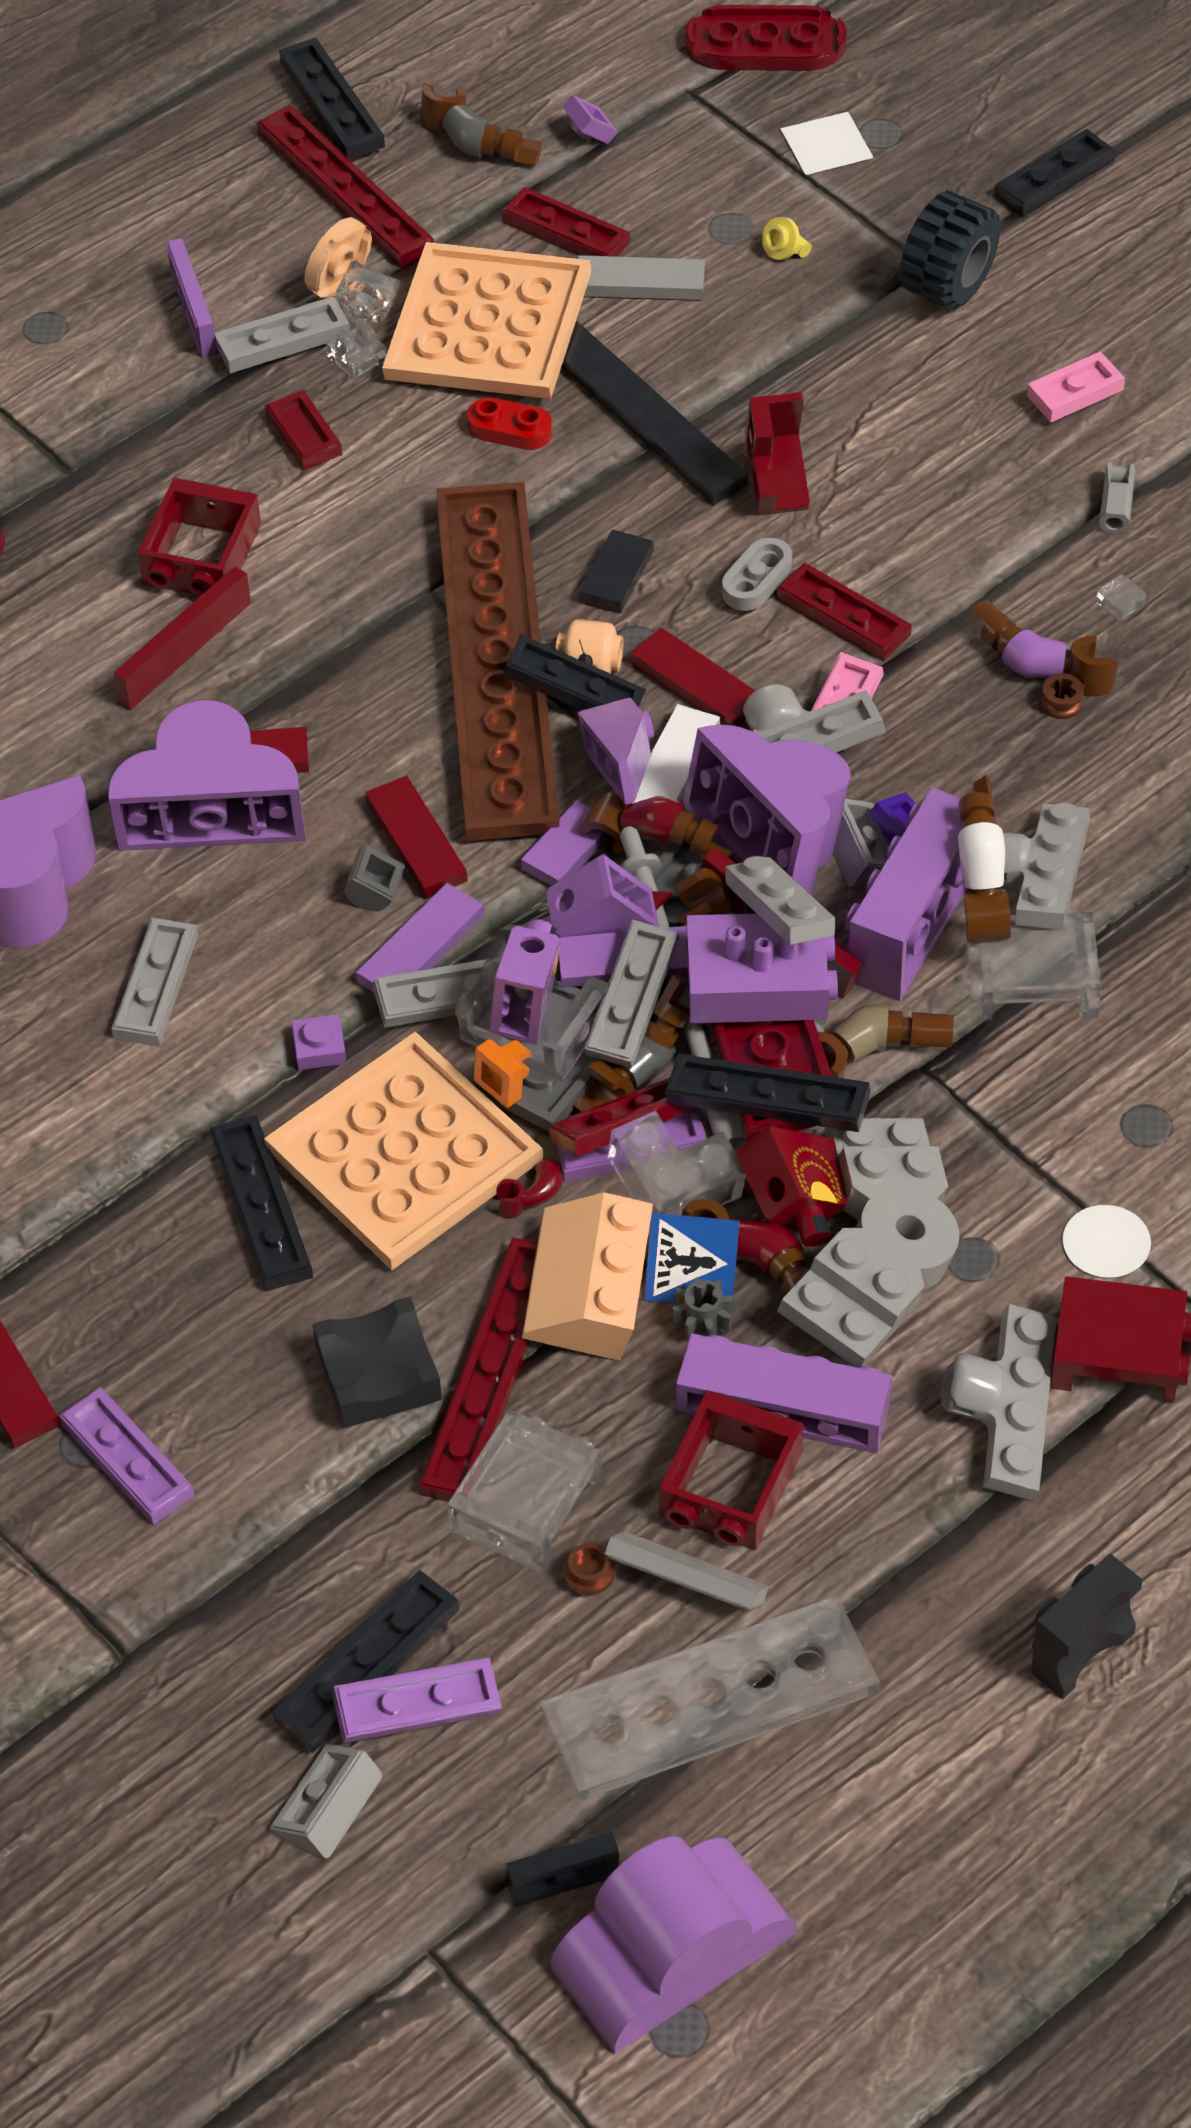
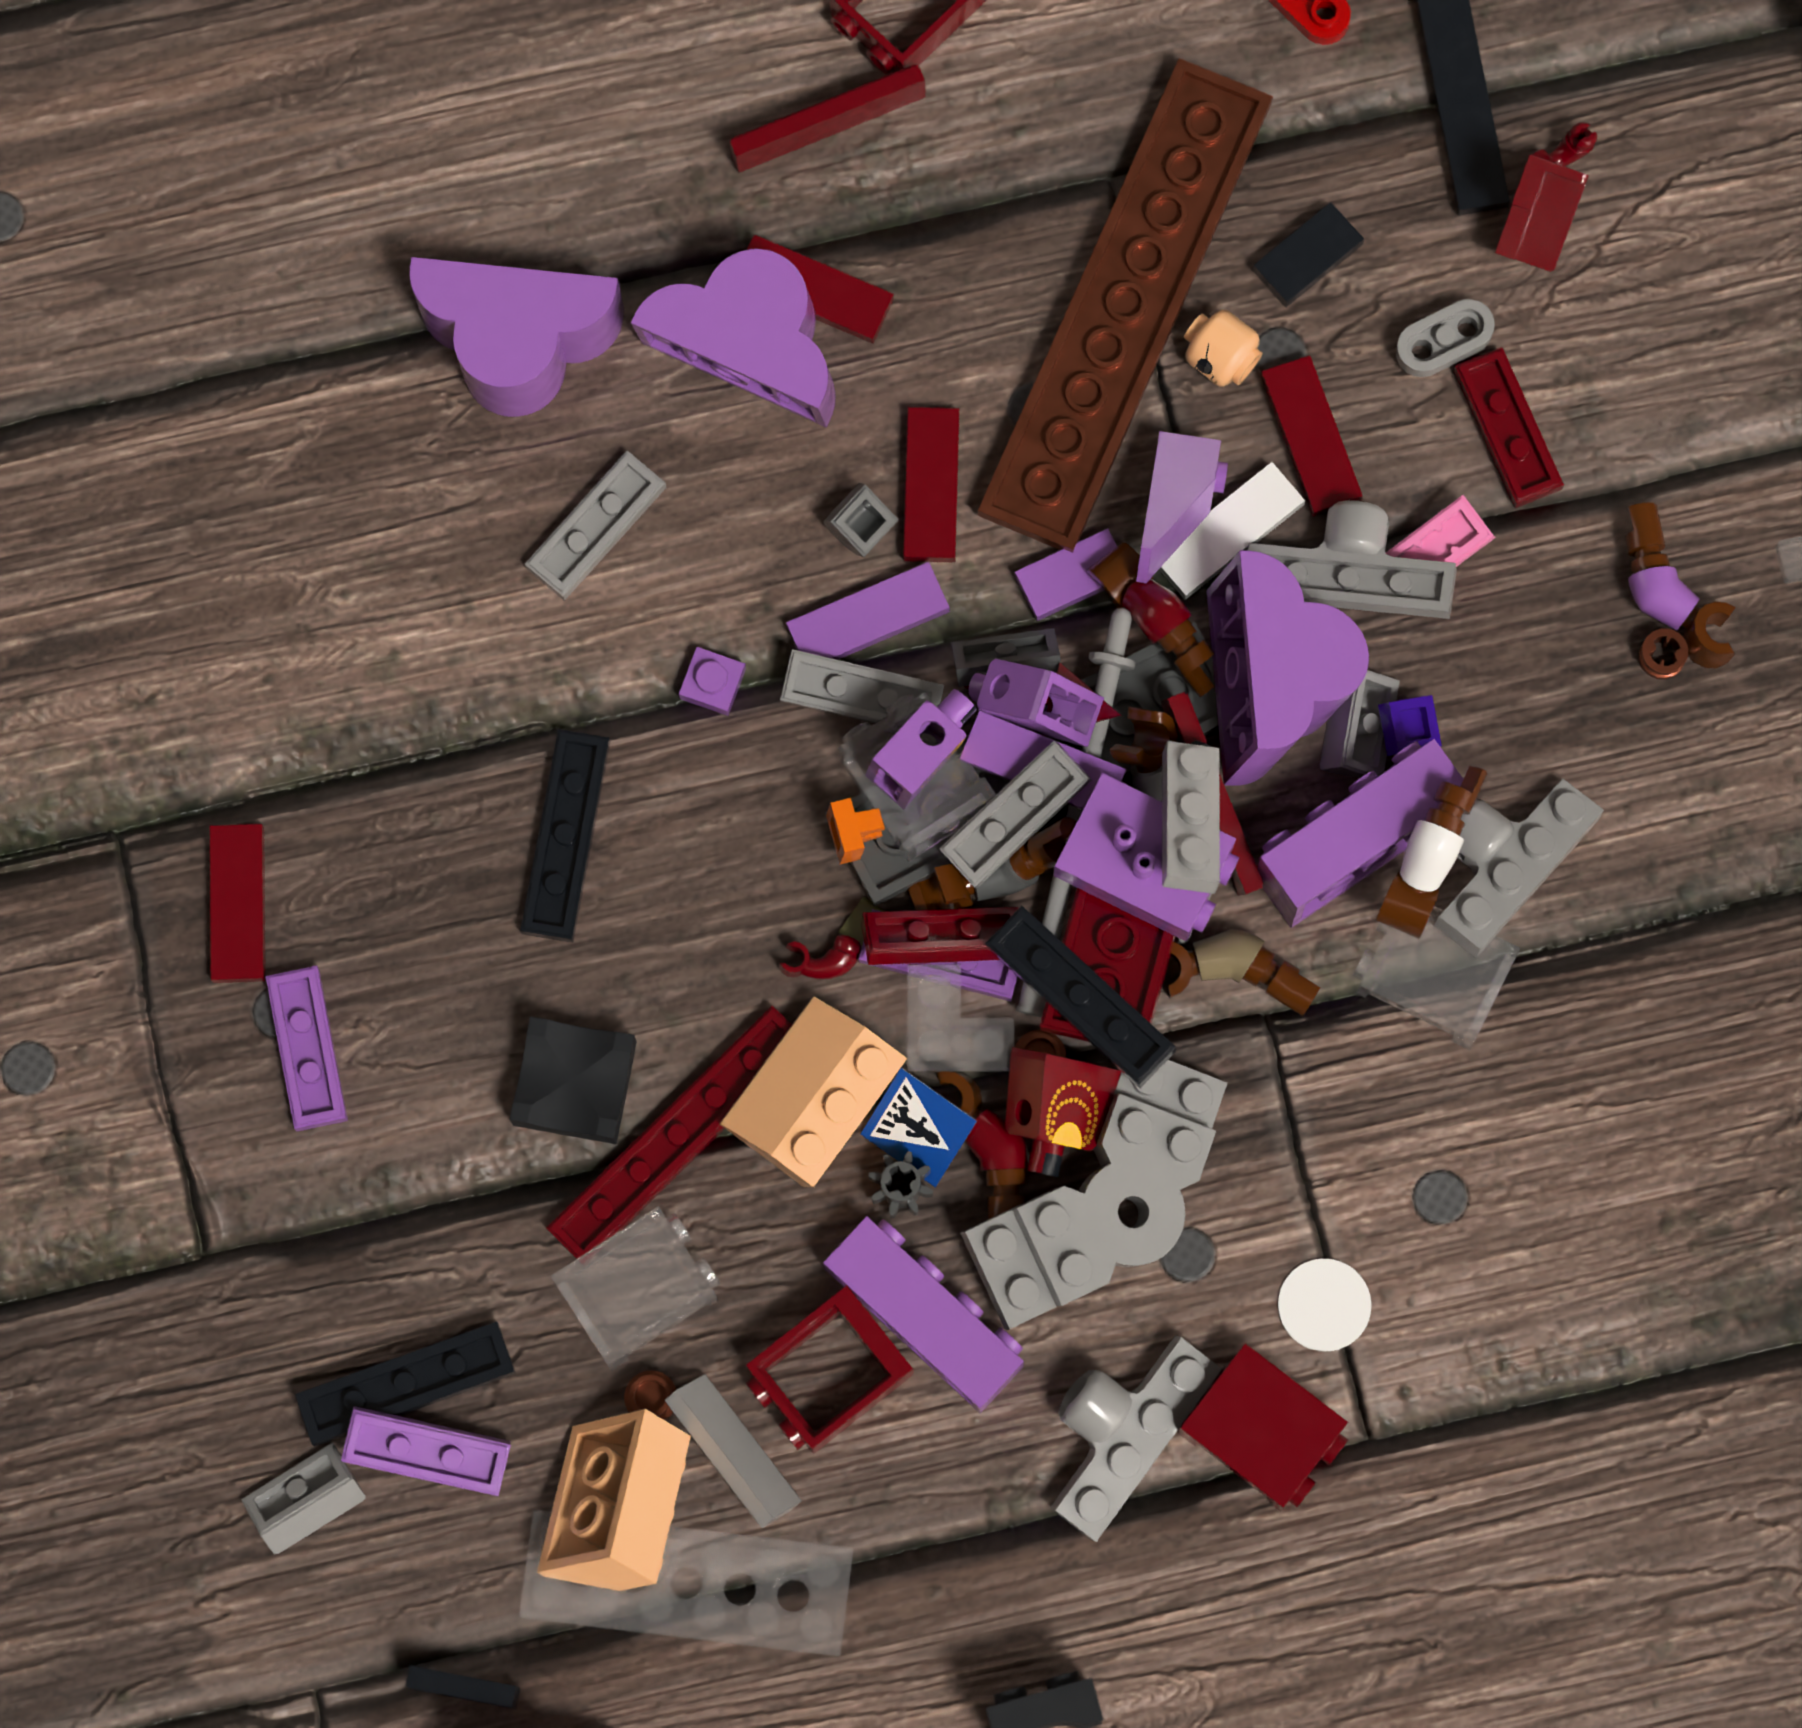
camera: 30 degrees right, 25 degrees up
(403, 1150) = (723, 853): light nougat plate -> none
(566, 676) = (1180, 381): black tile -> none
(610, 1646) = (615, 1502): none -> light nougat slope

